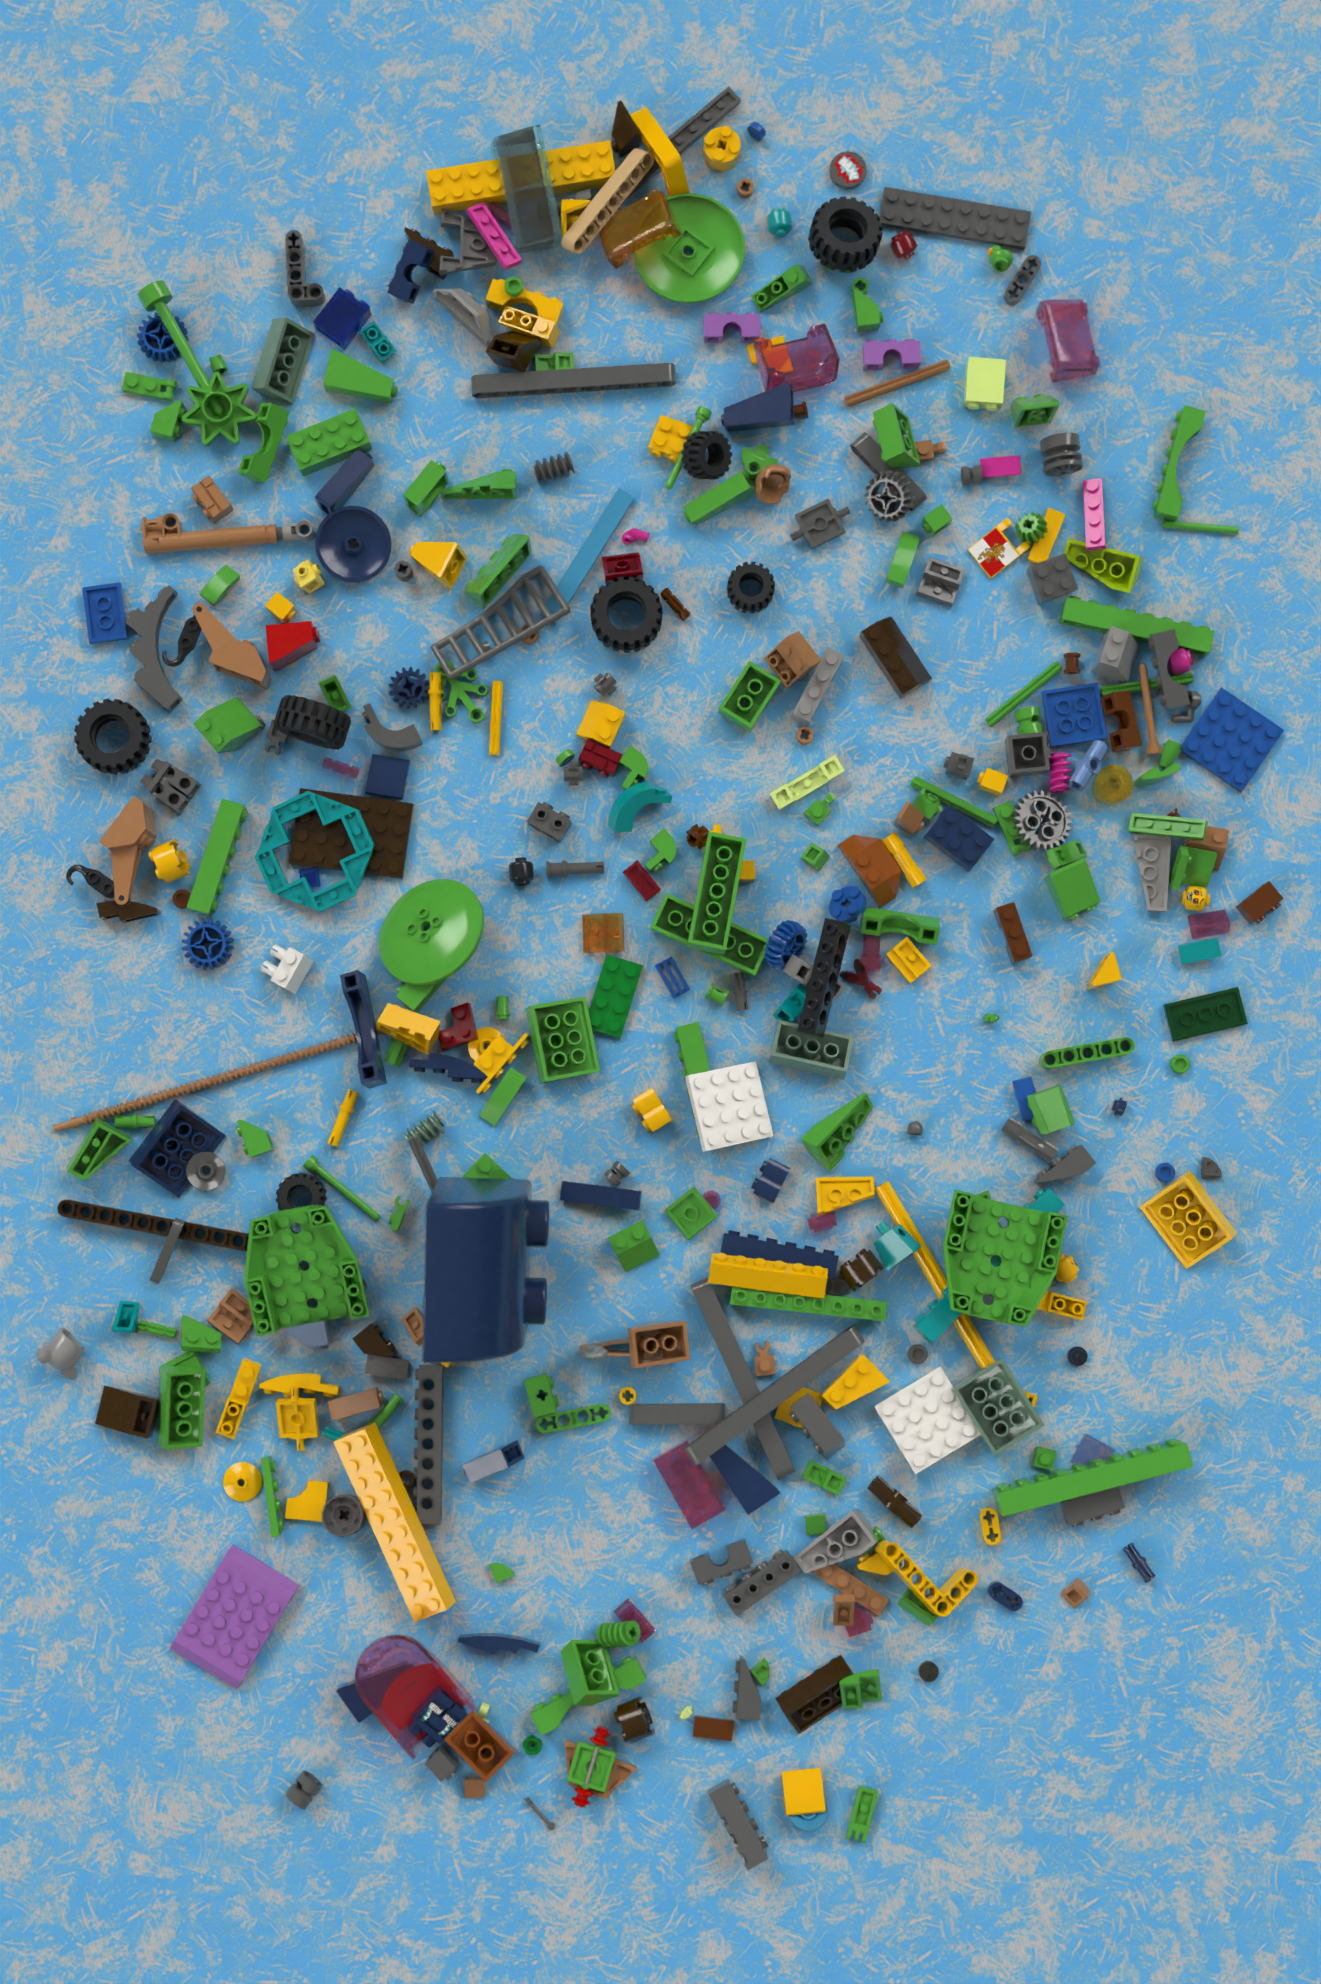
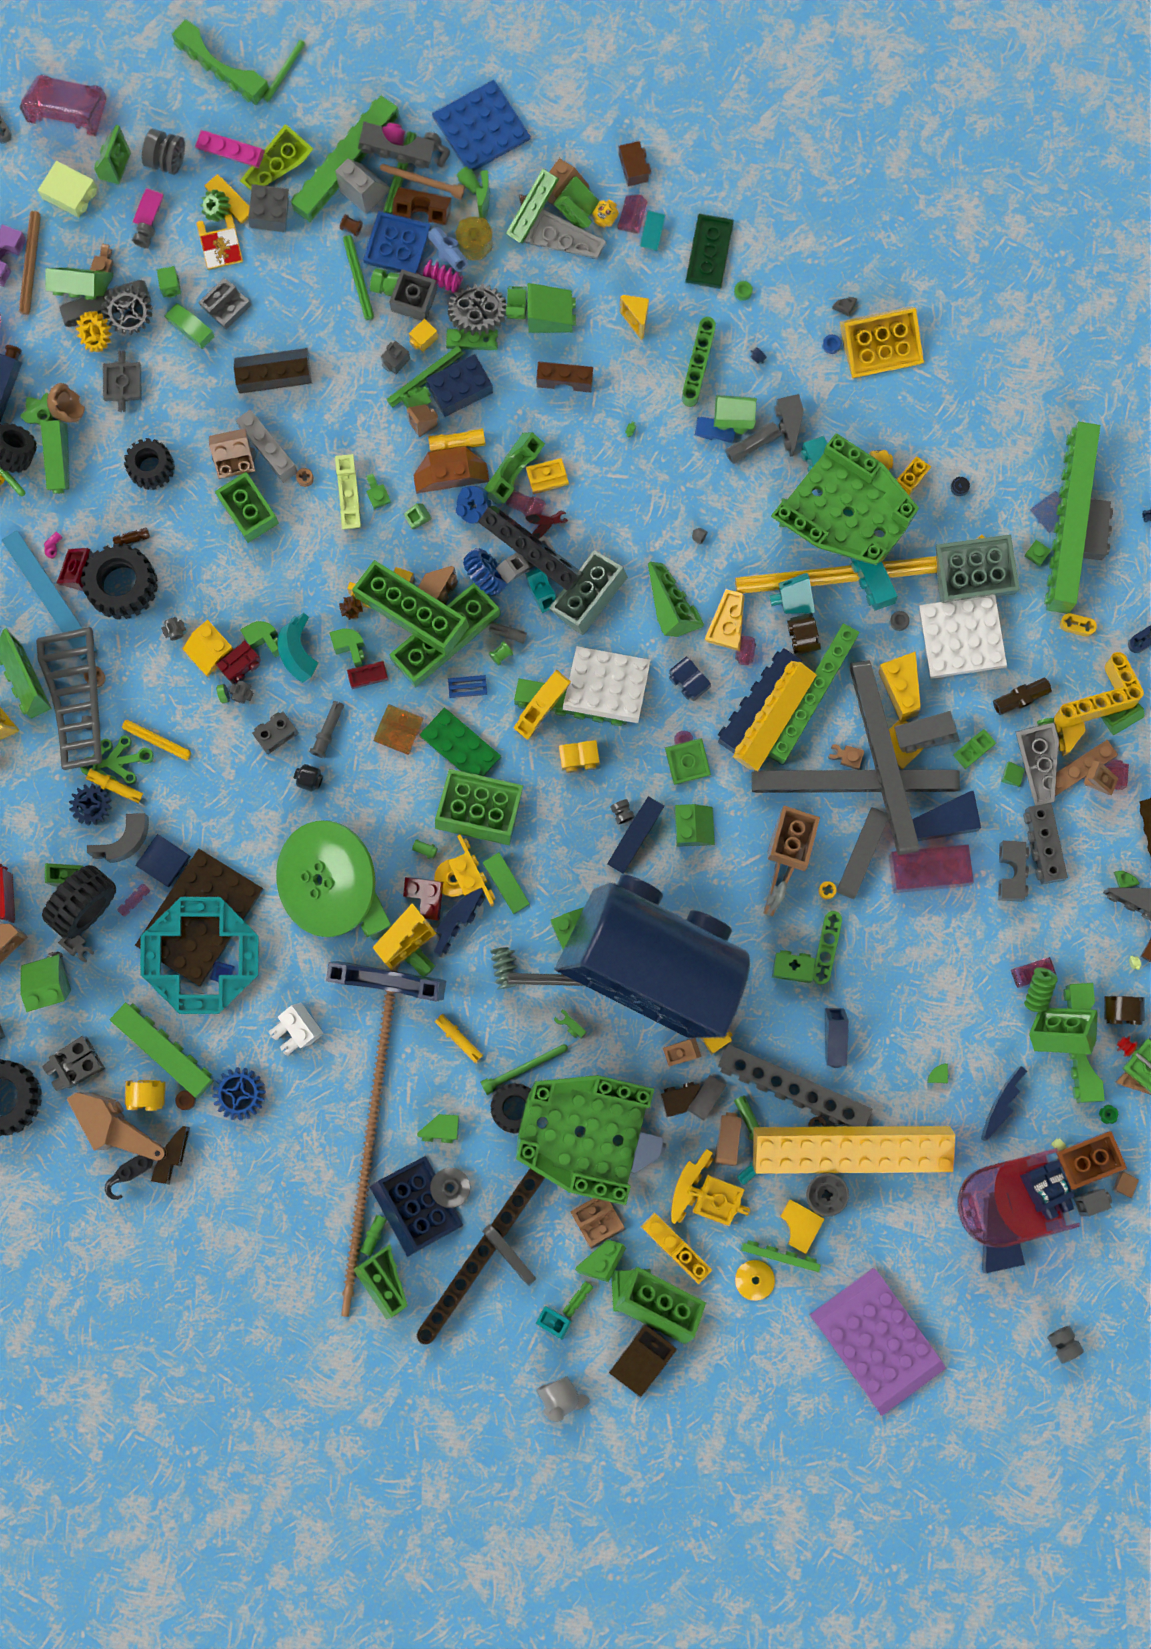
camera: 60 degrees left, 5 degrees down
(681, 1055) = (541, 704): none -> yellow slope
(751, 906) = (439, 583): none -> medium nougat slope
(838, 1286) = (811, 661): dark grey tile -> none
(854, 475) = (93, 331): none -> yellow gear

